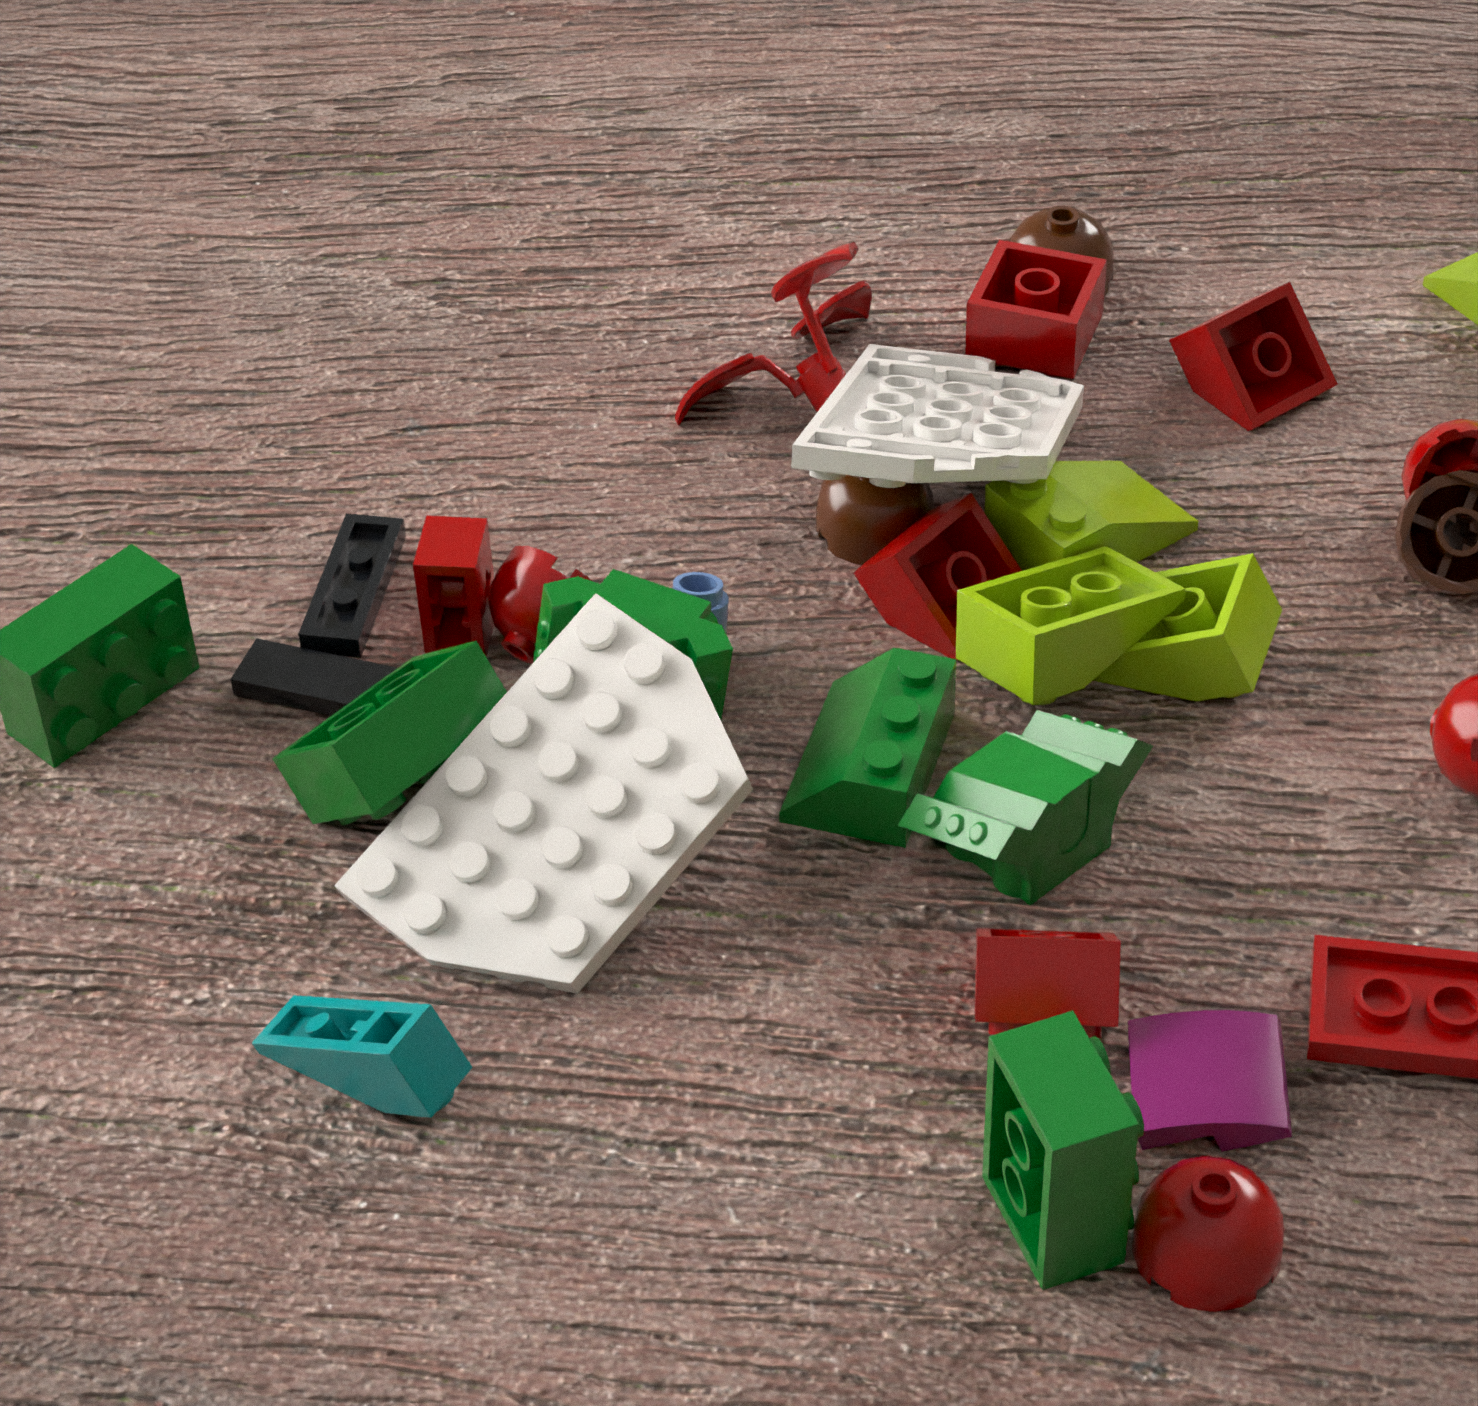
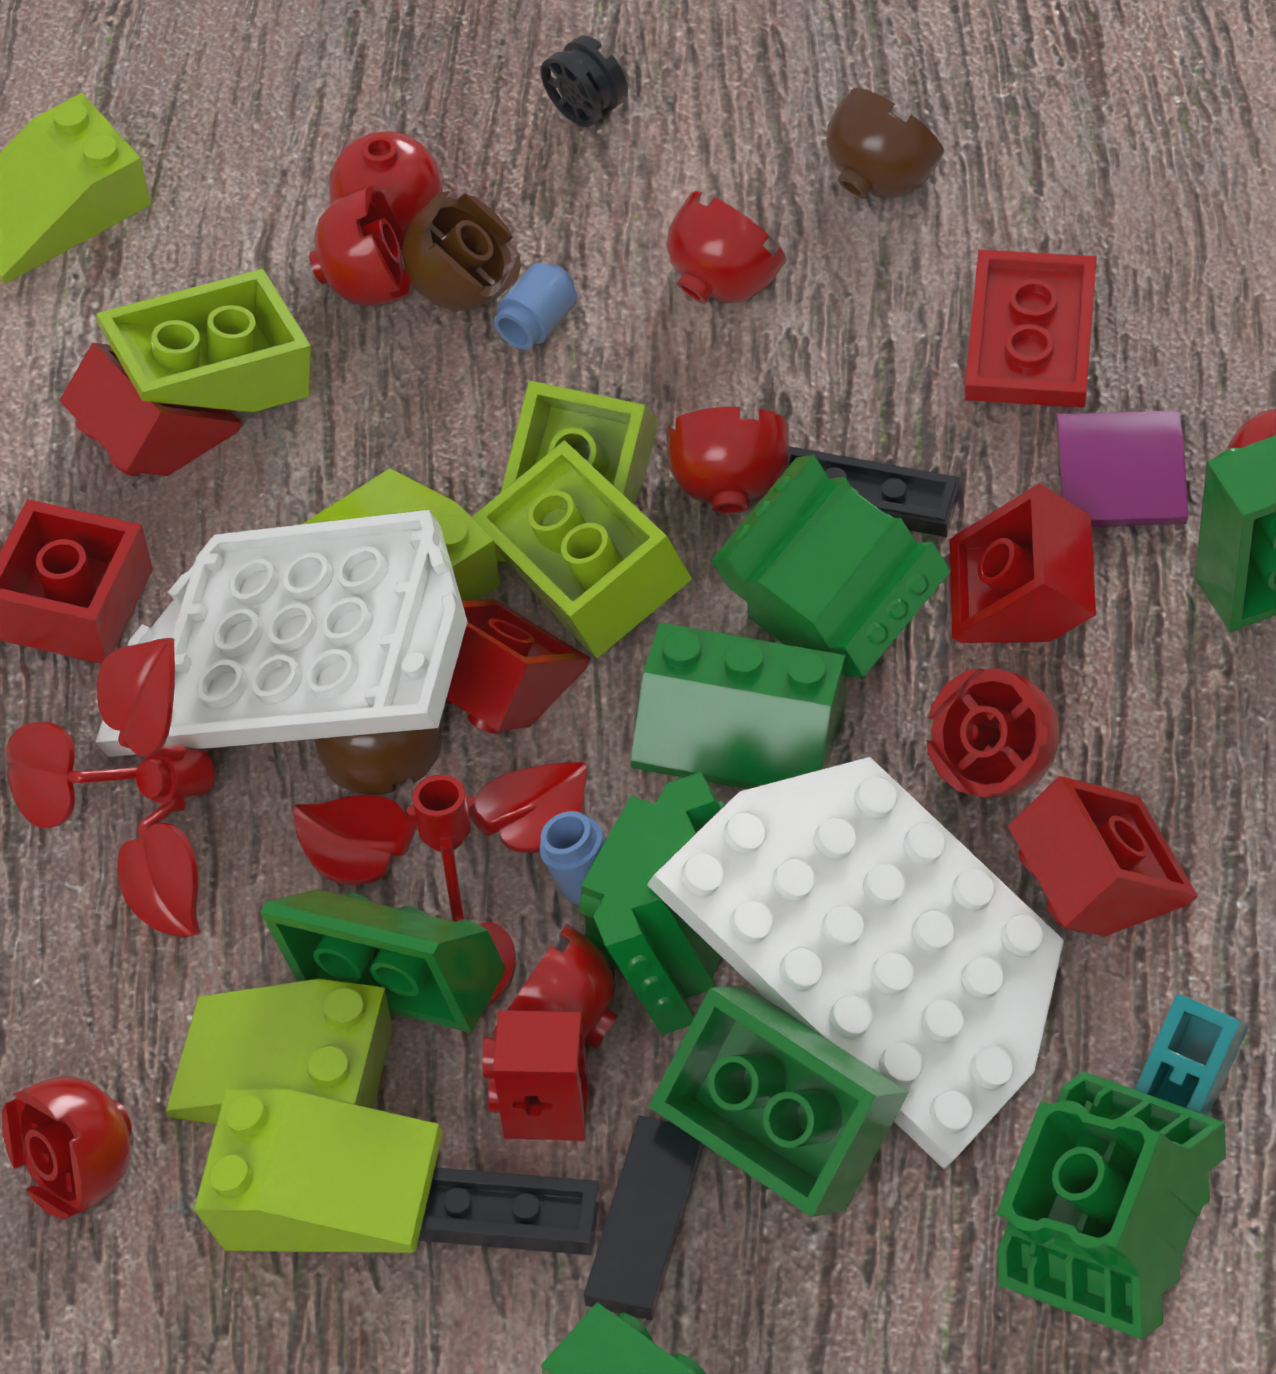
camera: 90 degrees left, 10 degrees up
(243, 970) = (1106, 1202): none -> green slope
(395, 462) = (315, 1175): none -> lime slope
(458, 337) = (69, 1141): none -> red cylinder
(523, 470) = (290, 1036): none -> lime slope
(599, 483) = (426, 963): none -> green slope
(663, 1018) = (1099, 858): none -> red slope
(731, 504) = (357, 834): none -> red plant
(811, 924) = (992, 733): none -> red cylinder
(1177, 866) = (917, 496): none -> black tile
(1192, 733) = (727, 456): none -> red cylinder
(1307, 369) = (213, 346): none -> lime slope
(1409, 606) = (535, 305): none -> medium blue brick

